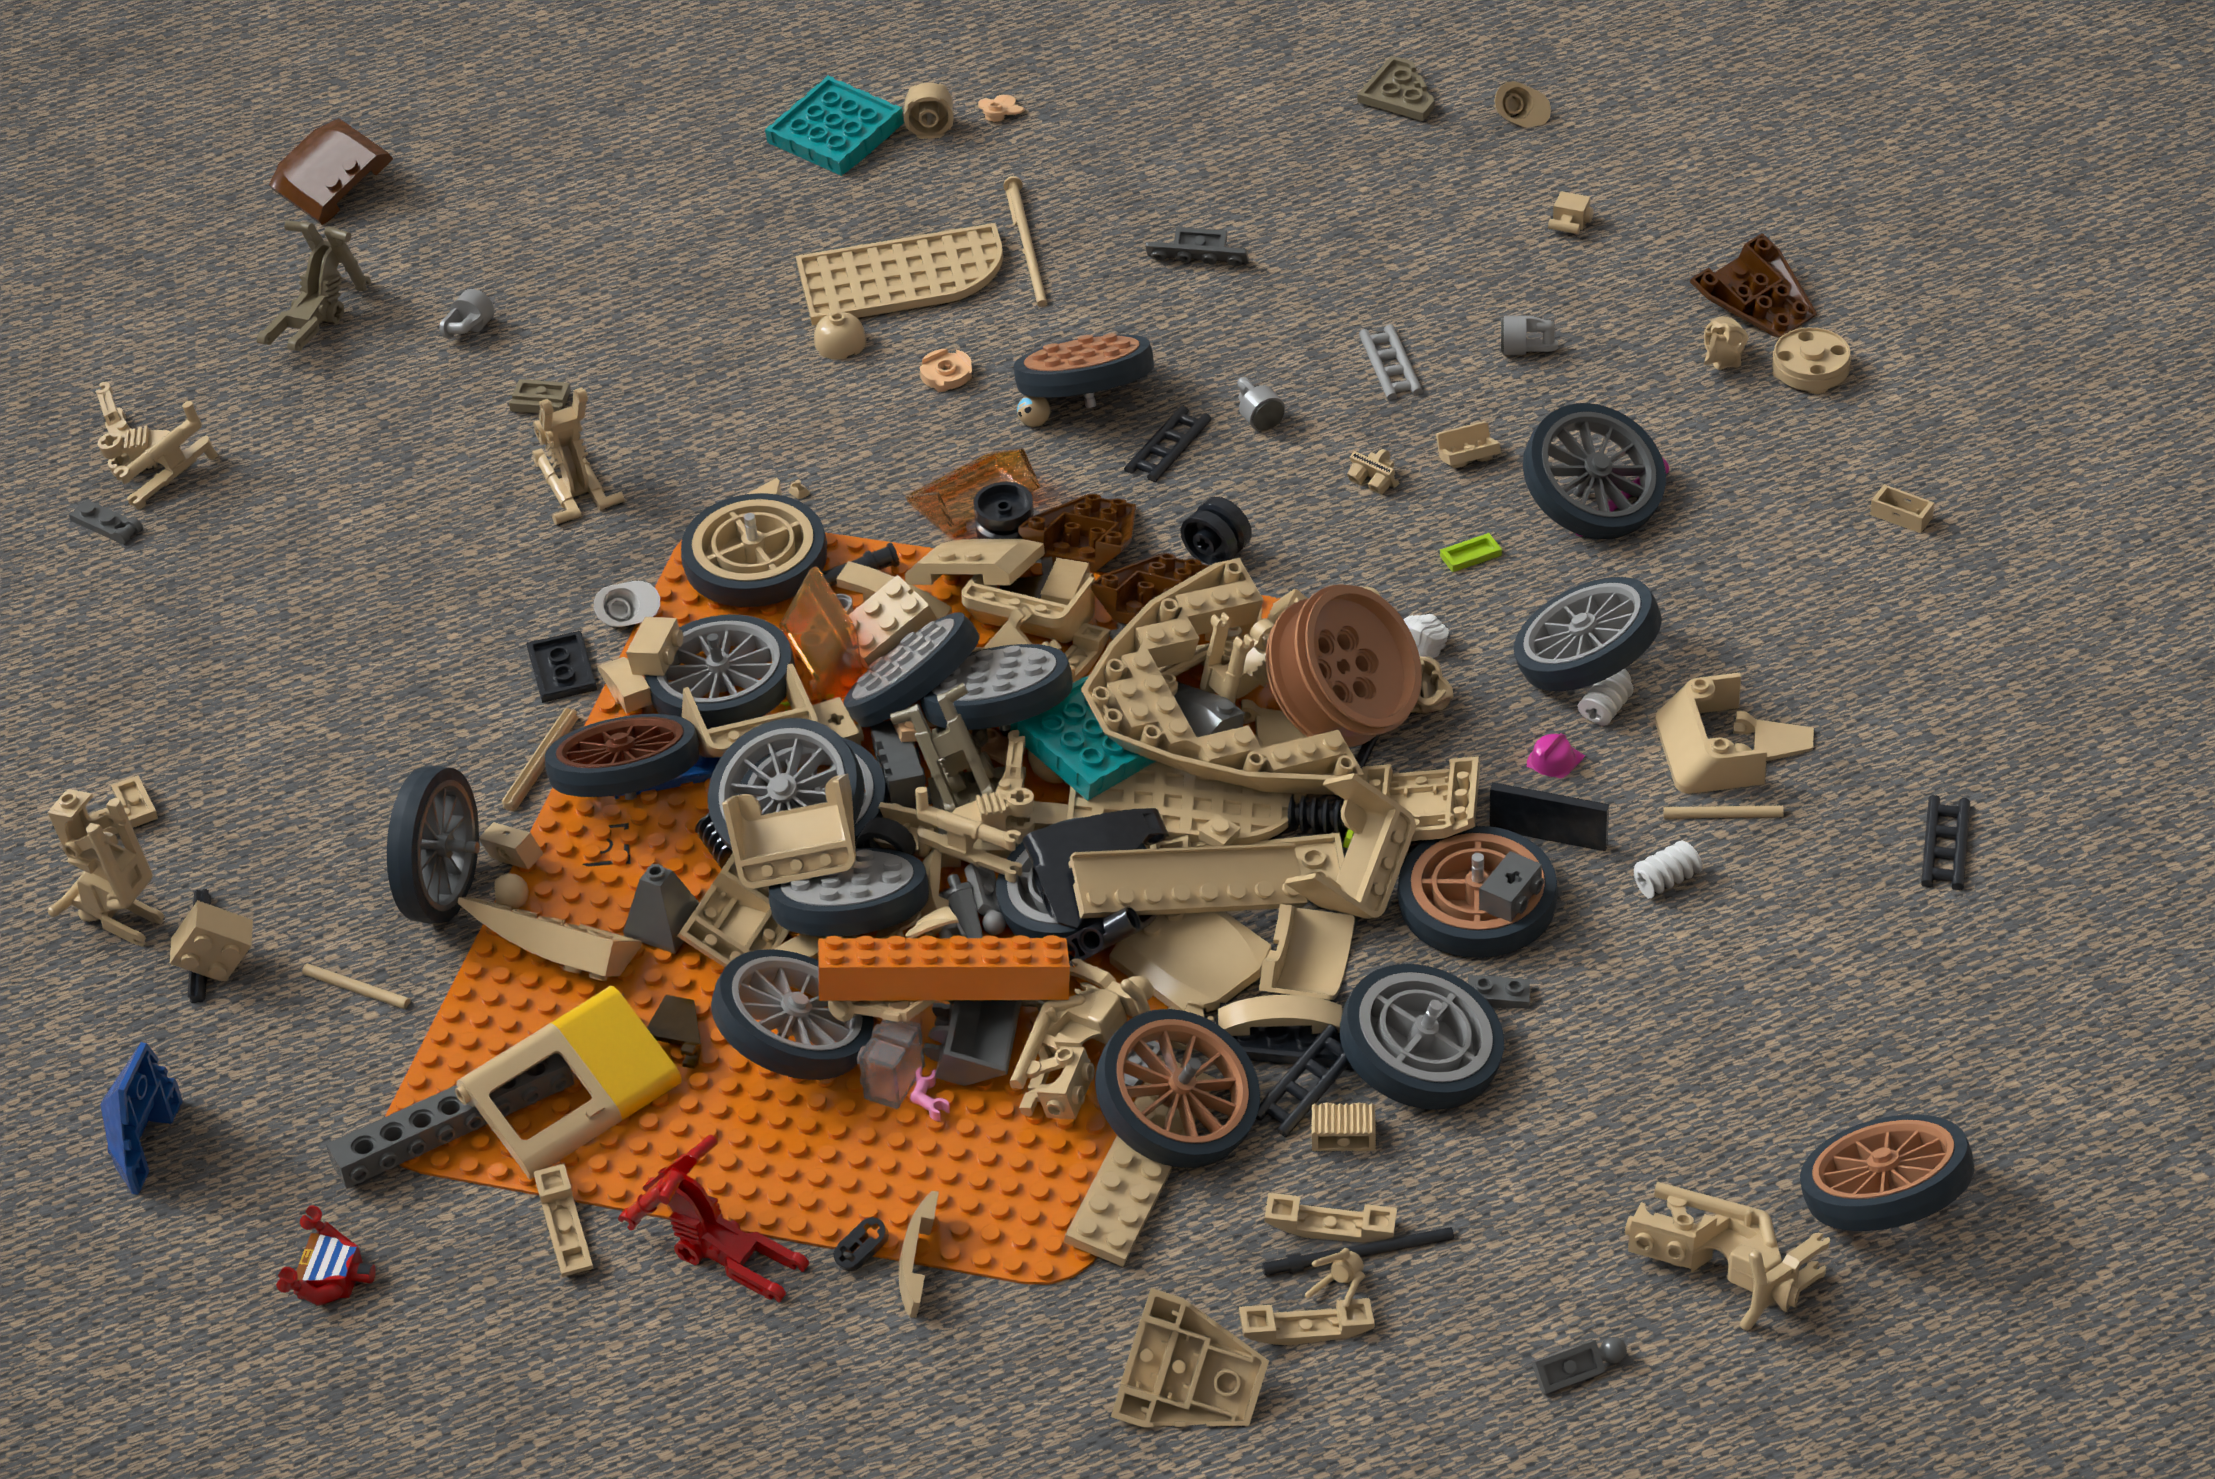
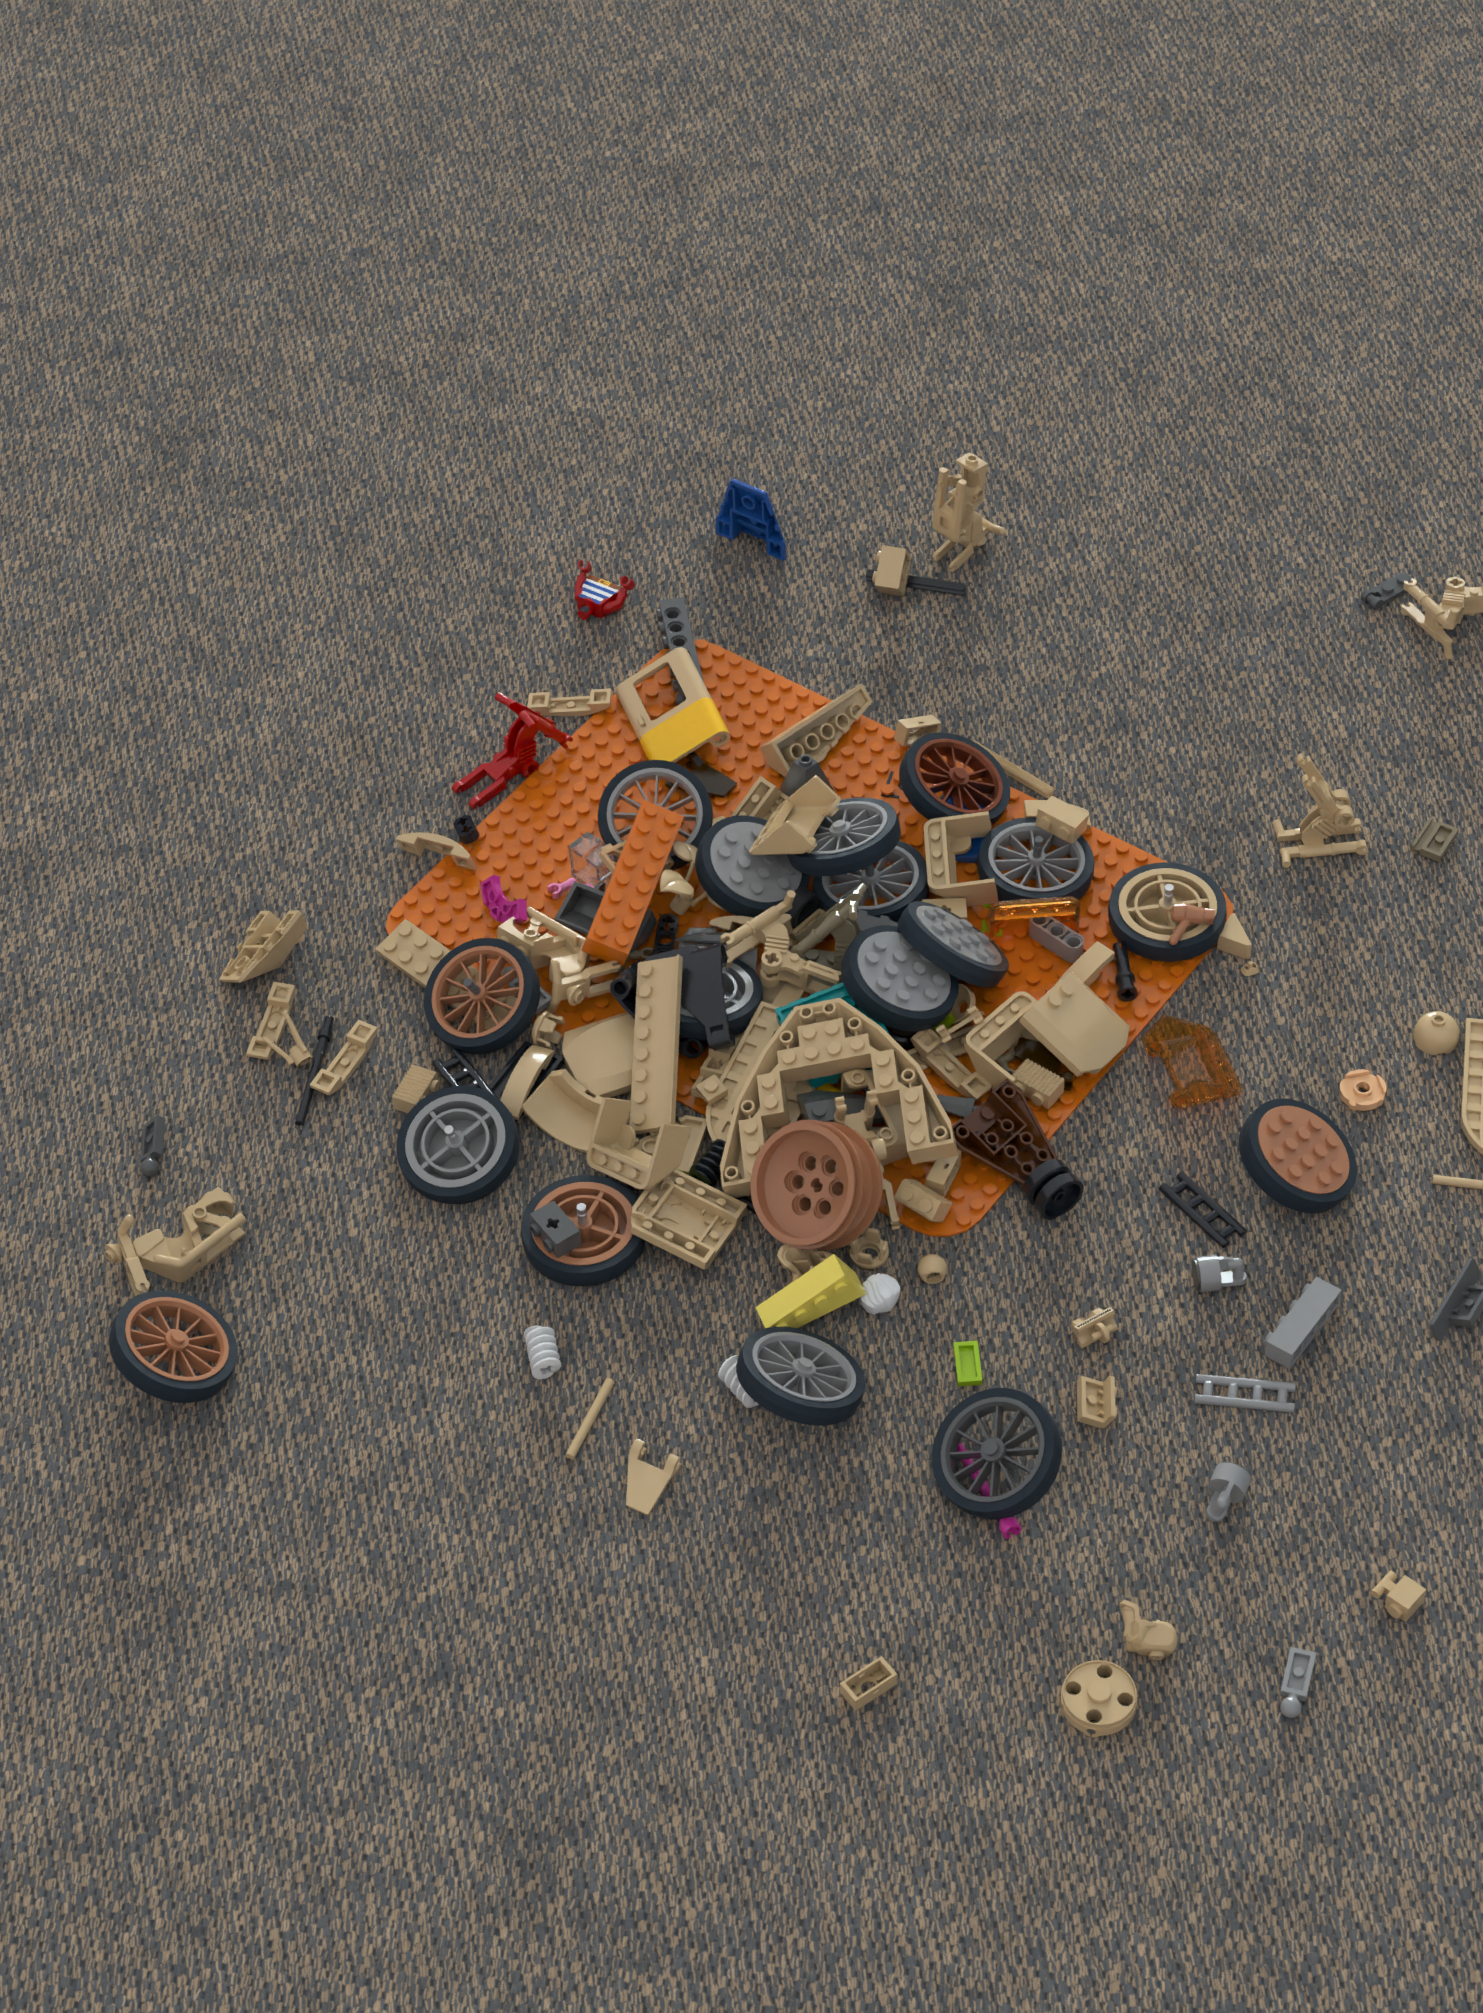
camera: 110 degrees right, 5 degrees up
(135, 803) = (1064, 567): tan plate -> none
(356, 986) = (838, 648): tan bar -> none
(432, 844) = (903, 665): wheel -> none
(511, 890) = (870, 720): tan piece -> none
(561, 666) = (1107, 797): black tile -> none
(626, 603) = (1144, 833): white piece -> none
(775, 513) = (1189, 914): none -> nougat piece
(888, 618) = (1029, 951): tan piece -> none
(1001, 510) = (1144, 1071): black wheel -> none
(1004, 1138) = (499, 906): none -> dark pink tile
(1083, 529) = (1109, 1118): reddish brown wedge -> none
(1288, 334) = (1302, 1322): none -> light grey brick
(1474, 664) = (812, 1295): none -> light yellow wedge
(1502, 991) = (492, 1212): dark grey plate -> none
(1549, 816) = (625, 1291): black tile -> none
(1554, 756) = (706, 1335): dark pink piece -> none
(1701, 762) = (666, 1415): tan windscreen -> none
(1702, 255) = (1296, 1681): none -> light grey plate
(1758, 289) = (1216, 1693): reddish brown wedge -> none
(1959, 833) = (472, 1534): black bar -> none

